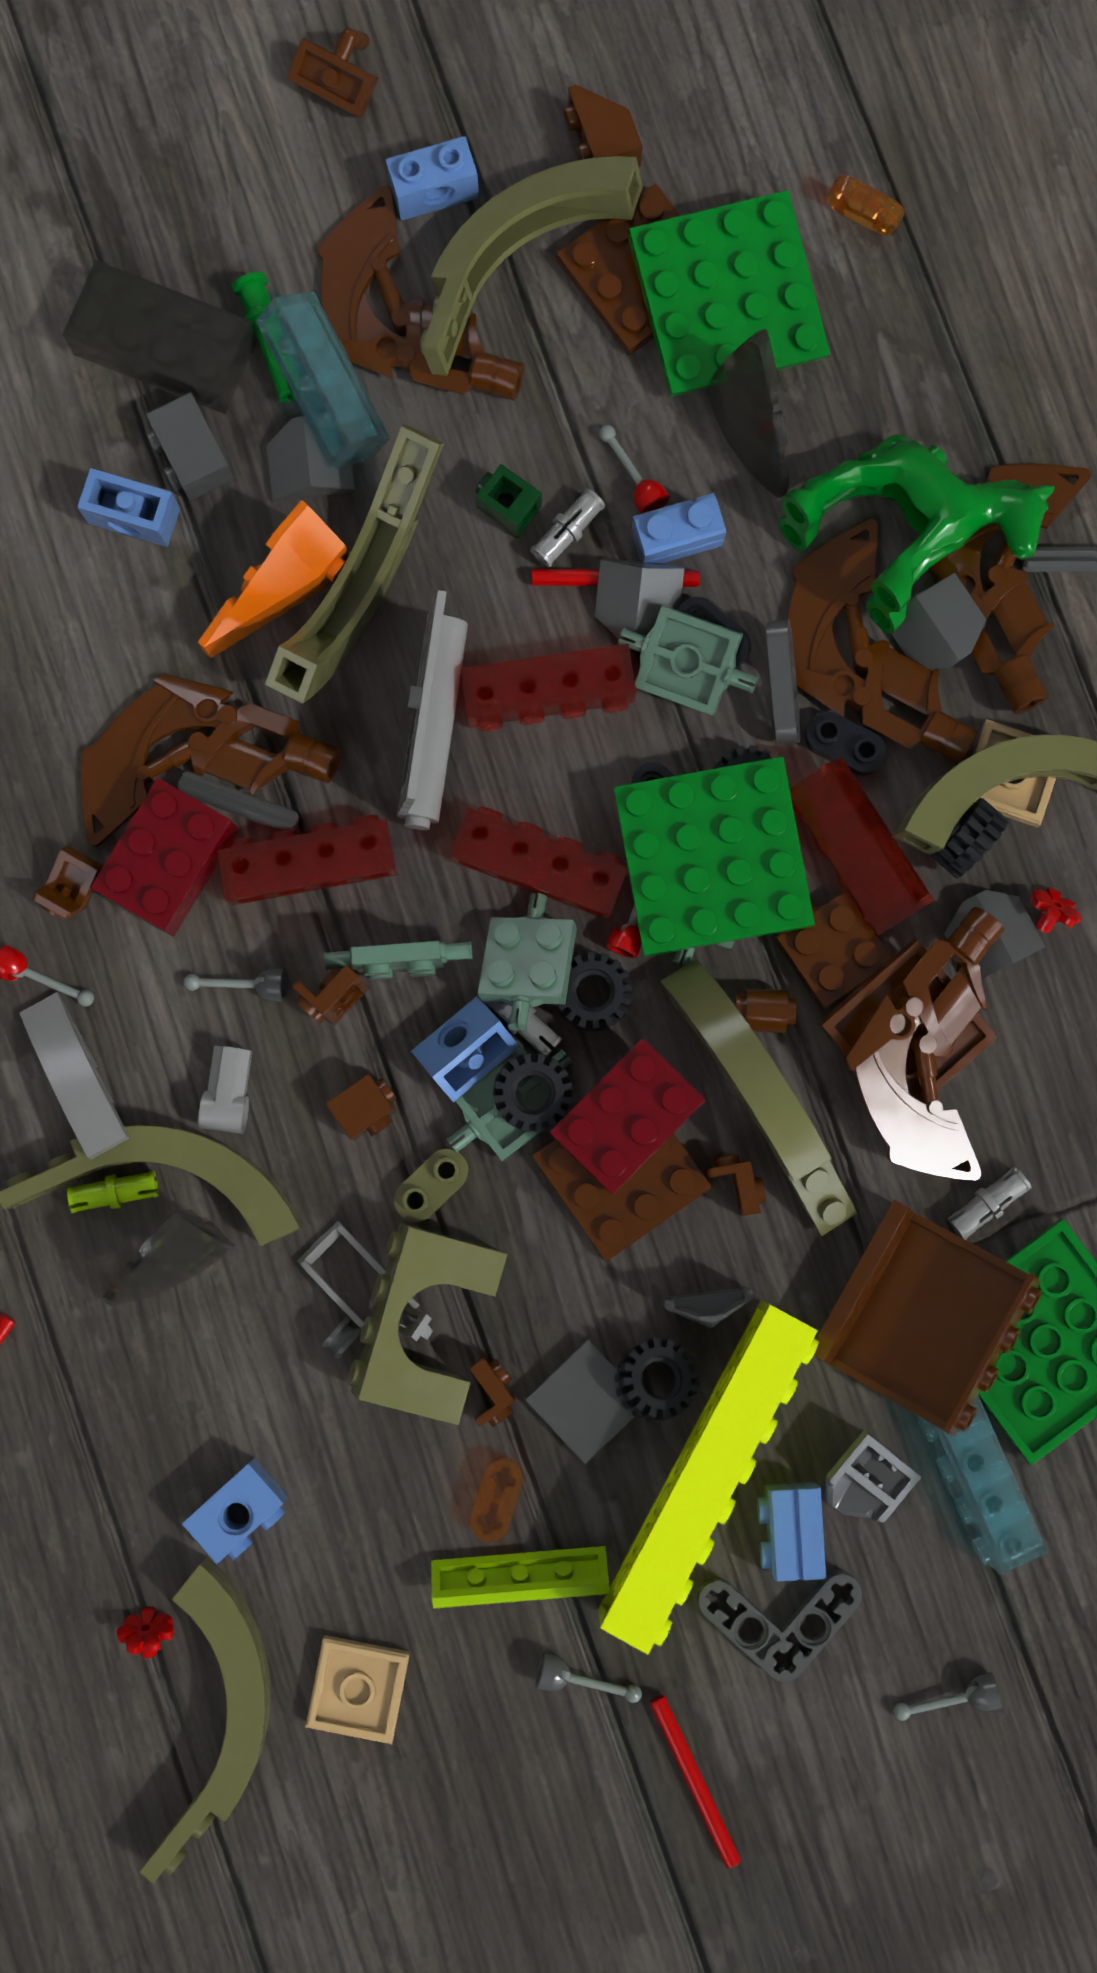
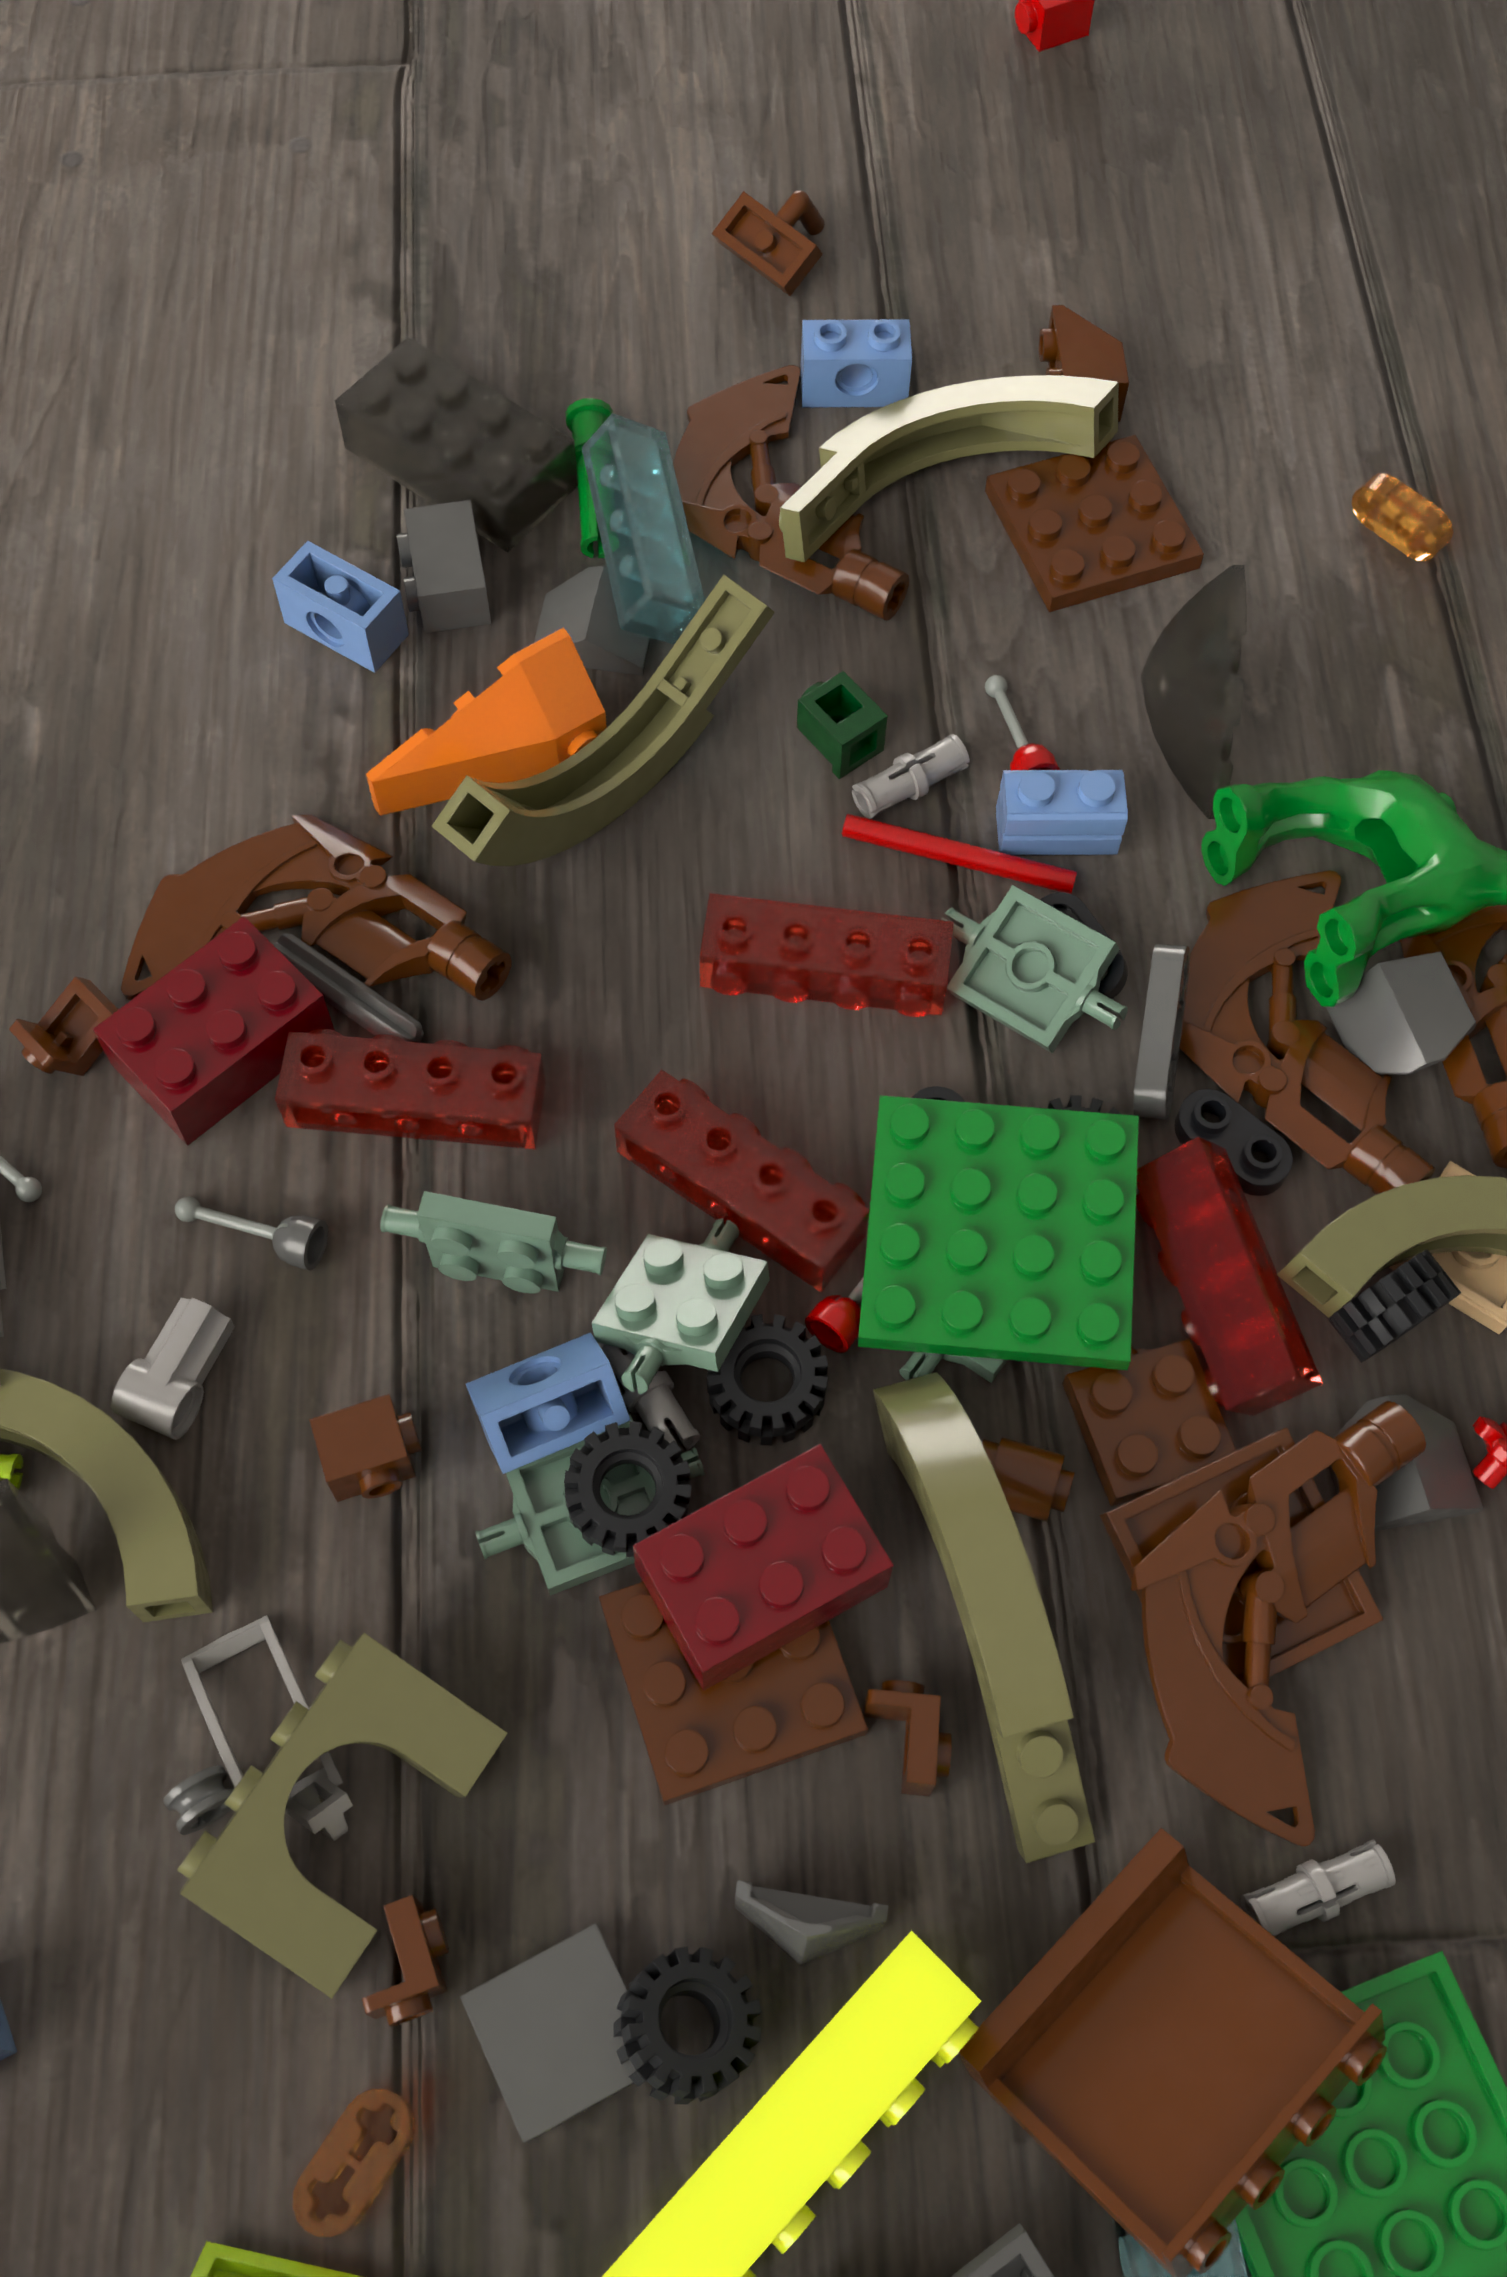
camera: 15 degrees right, 20 degrees down
(337, 997) = (380, 1270): reddish brown bracket -> none
(431, 1185) = (430, 1604): olive plate -> none
(432, 717) = (646, 941): light grey door -> none
(633, 594) = (977, 866): dark grey slope -> none
(721, 280) = (1177, 524): green plate -> none

